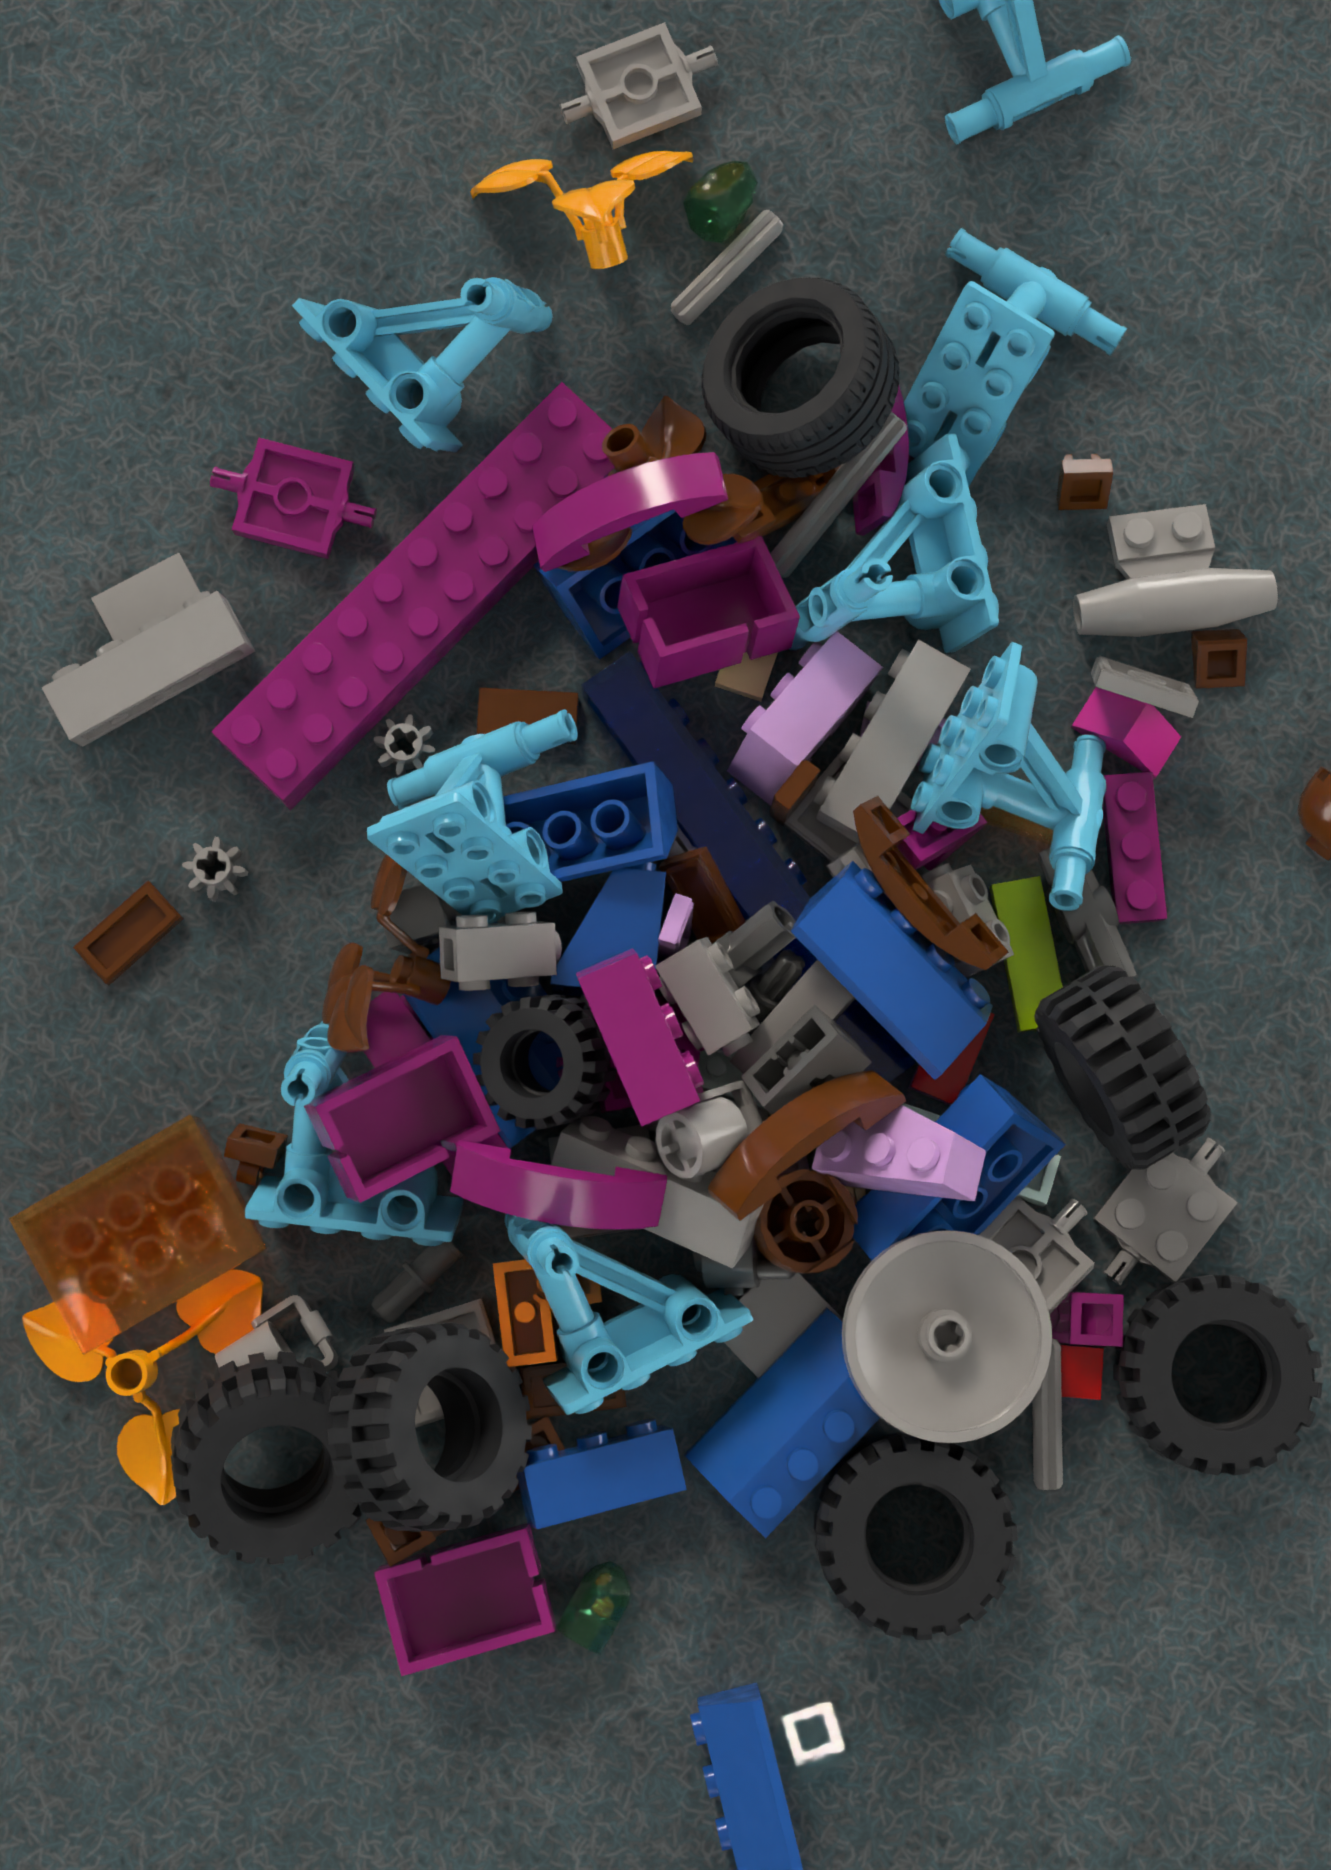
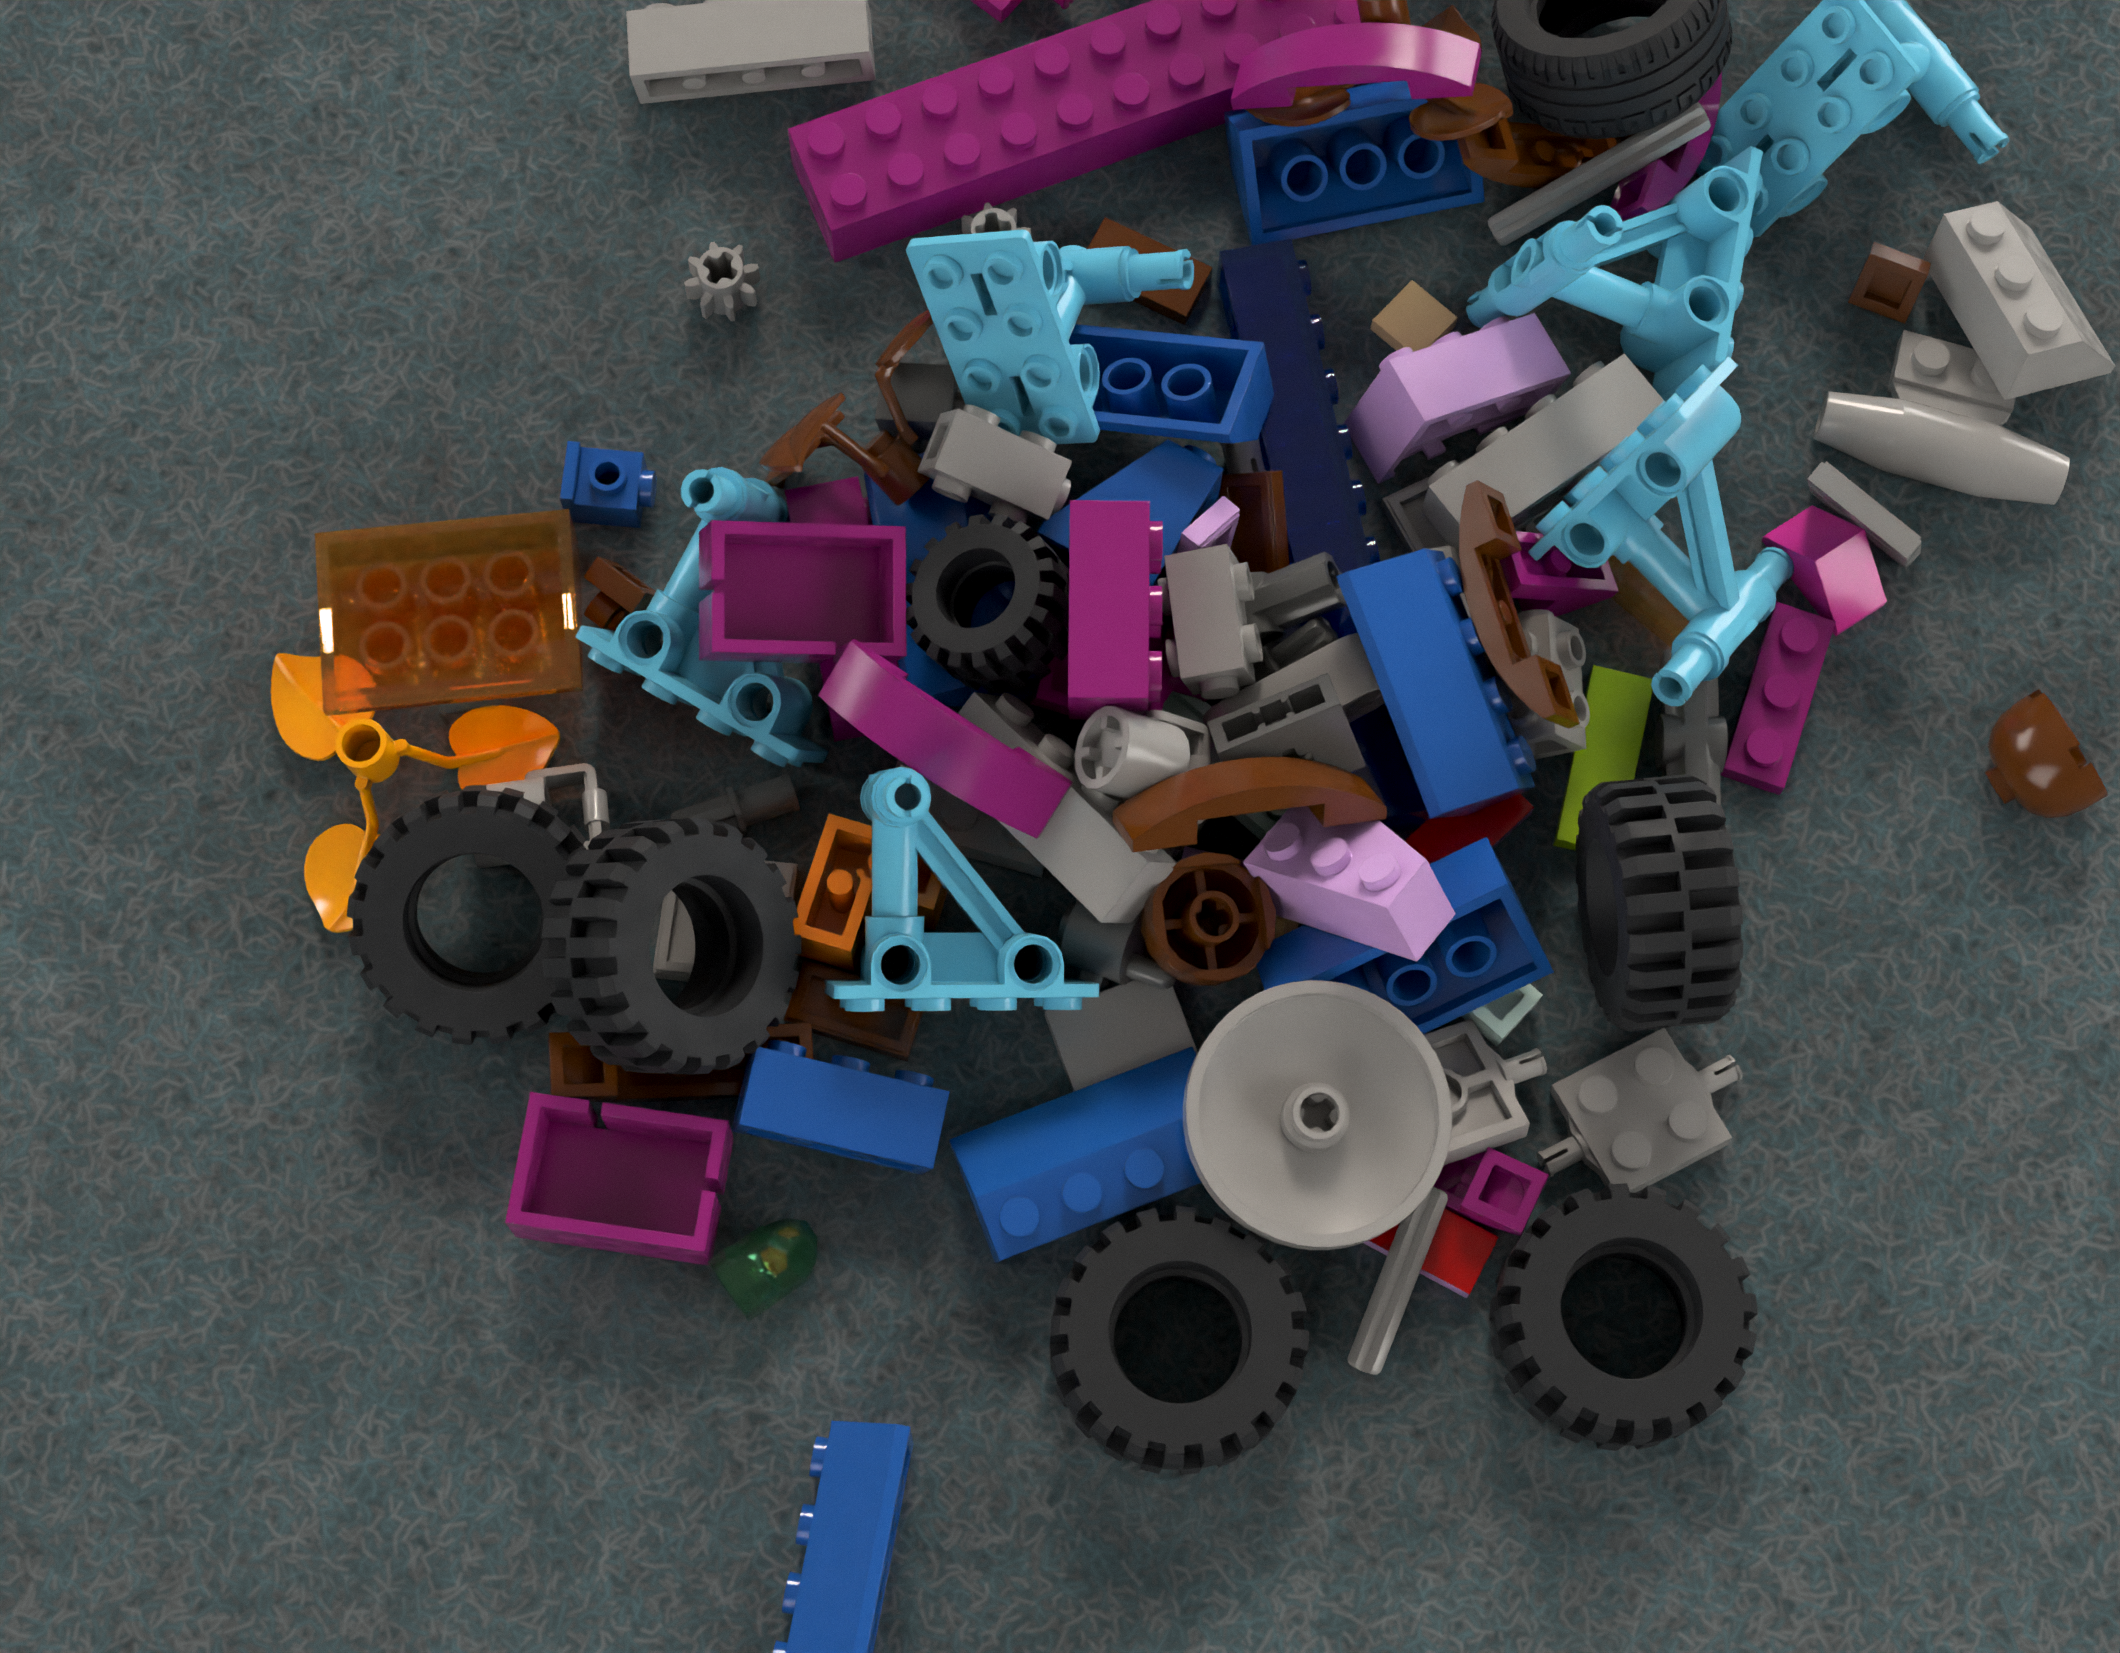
camera: 25 degrees right, 10 degrees down
(128, 933) = (594, 312): reddish brown tile -> none
(183, 1075) = (606, 504): none -> blue brick
(707, 611) = (1397, 230): magenta piece -> none
(793, 791) = (1409, 458): reddish brown tile -> none
(815, 1739) = (951, 1541): clear light blue slope -> none
(1183, 463) = (2012, 302): none -> light grey slope
(1219, 658) = (1967, 536): reddish brown slope -> none

